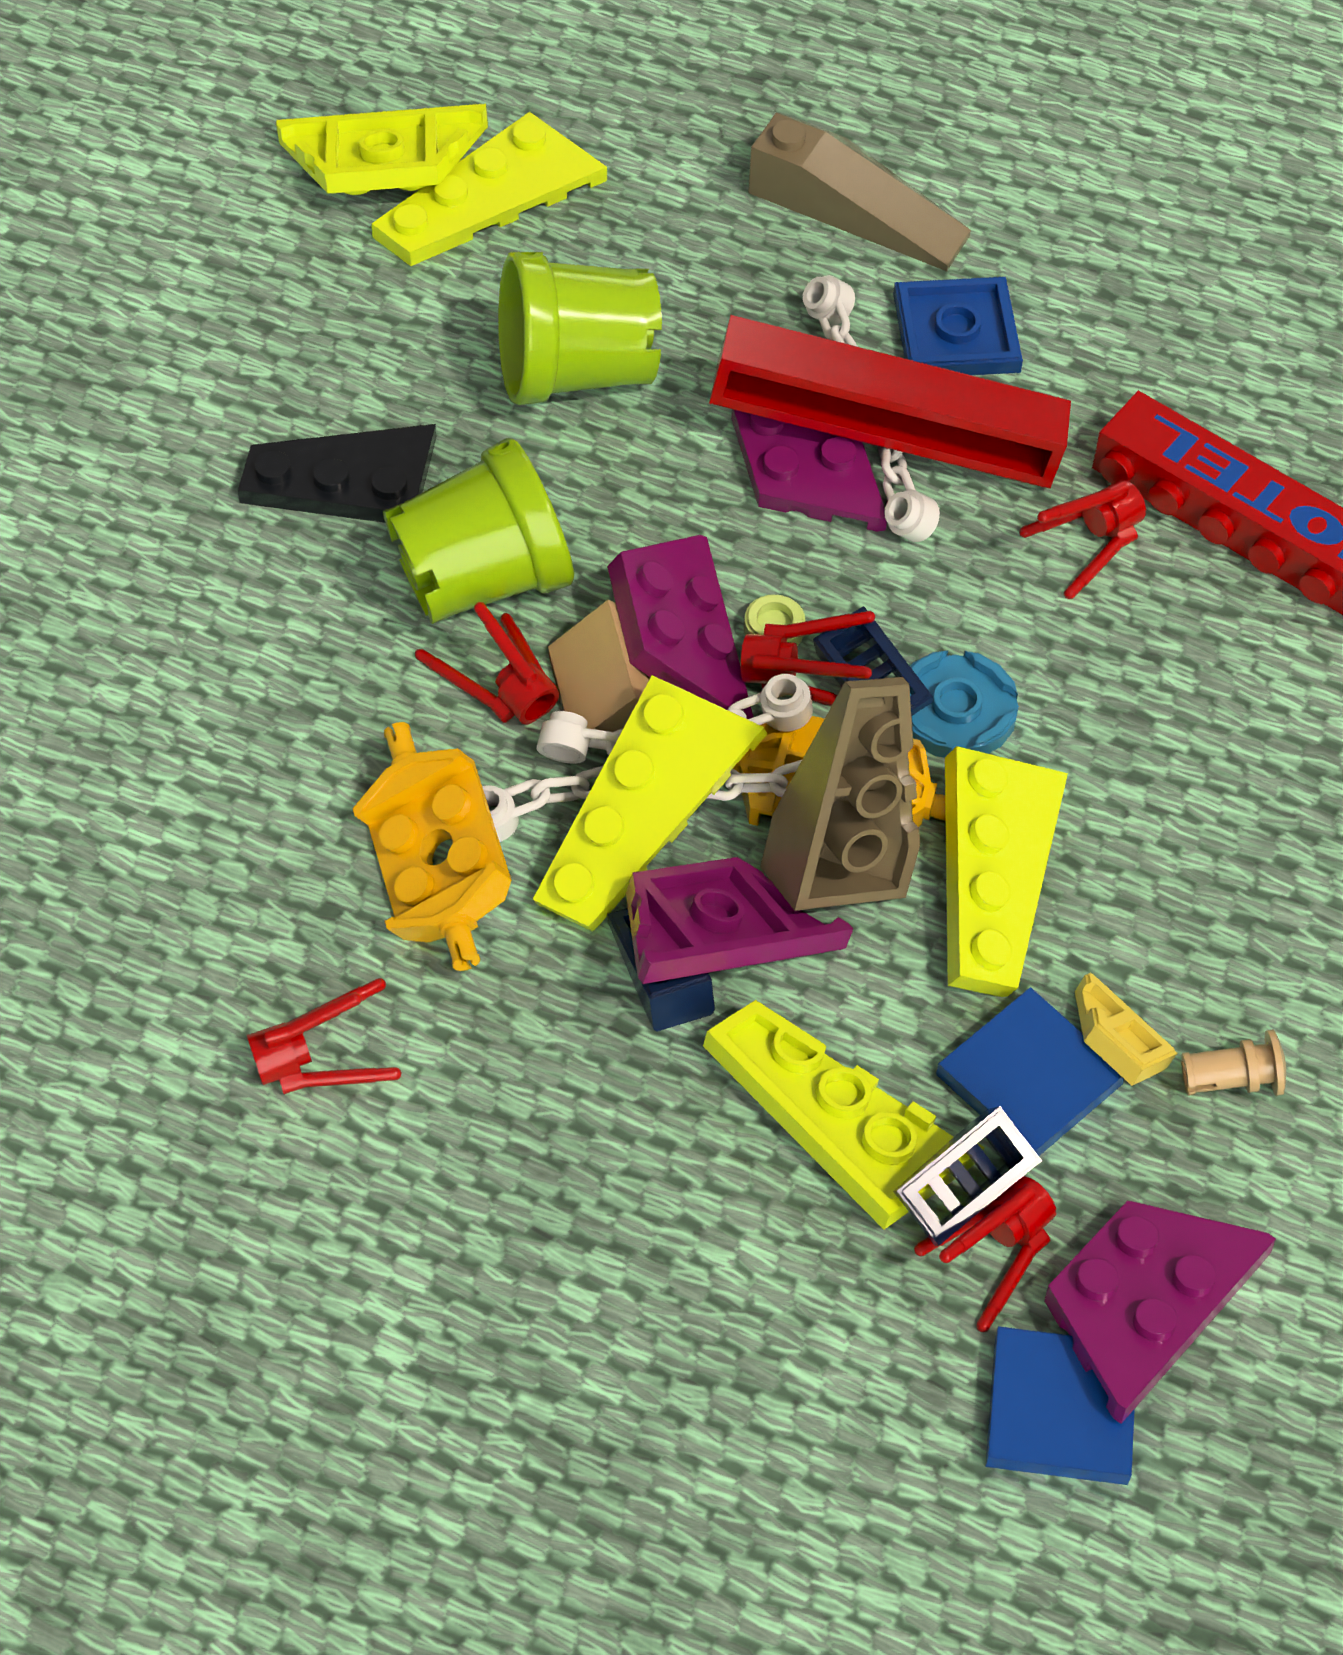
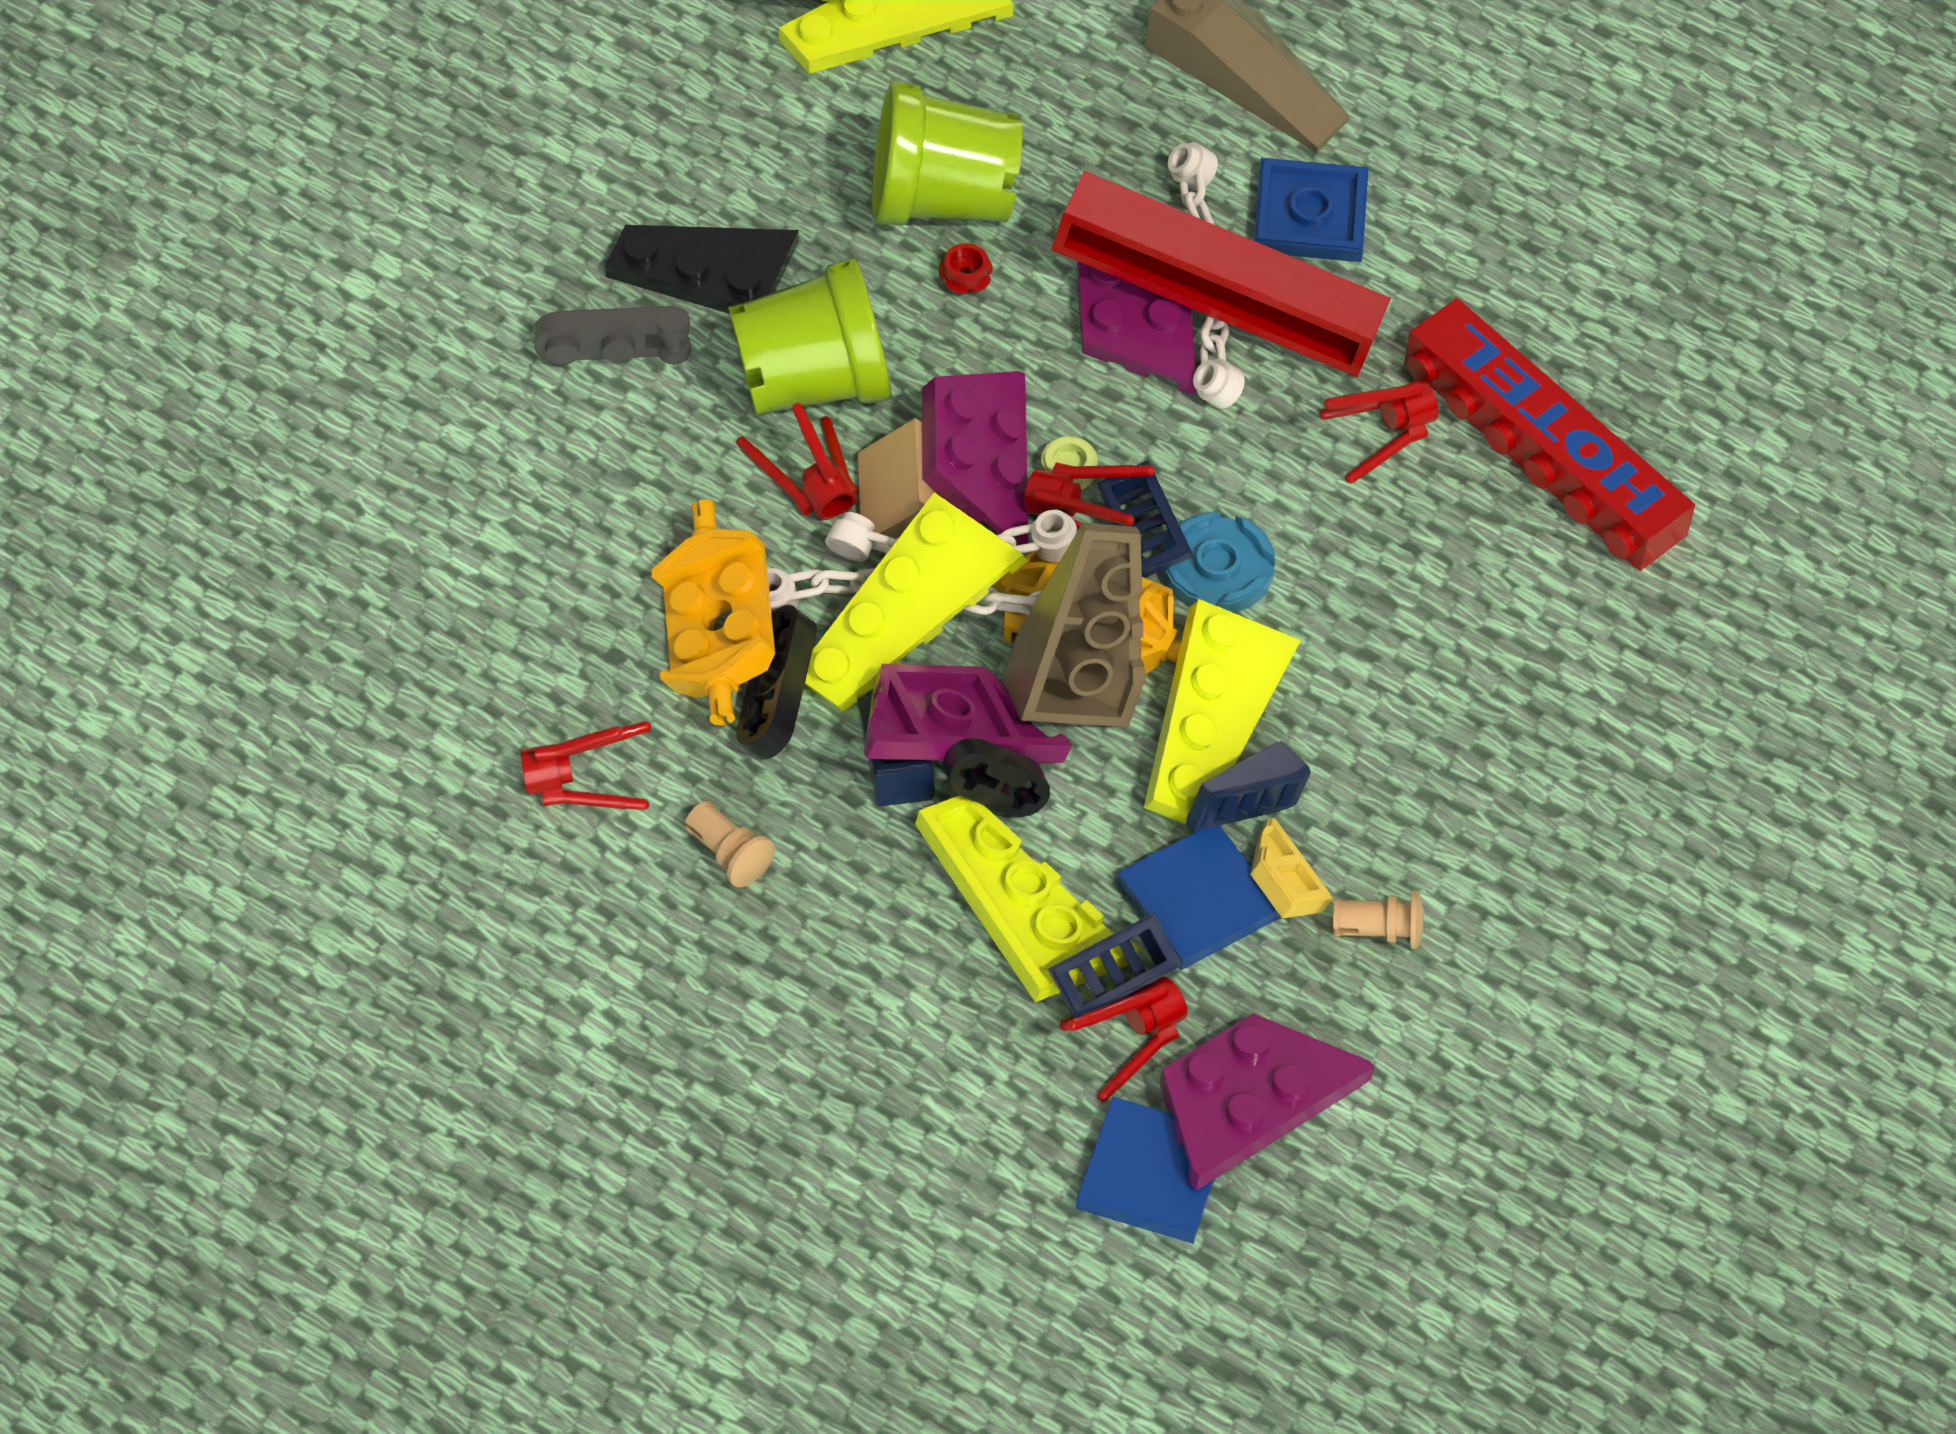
camera: 10 degrees right, 0 degrees up
(261, 561) = (614, 334): none -> dark grey plate
(509, 1107) = (736, 848): none -> tan pin
(518, 950) = (775, 695): none -> black beam
(619, 427) = (966, 258): none -> red plate
(789, 967) = (1001, 769): none -> black beam
(1063, 945) = (1250, 789): none -> dark blue slope

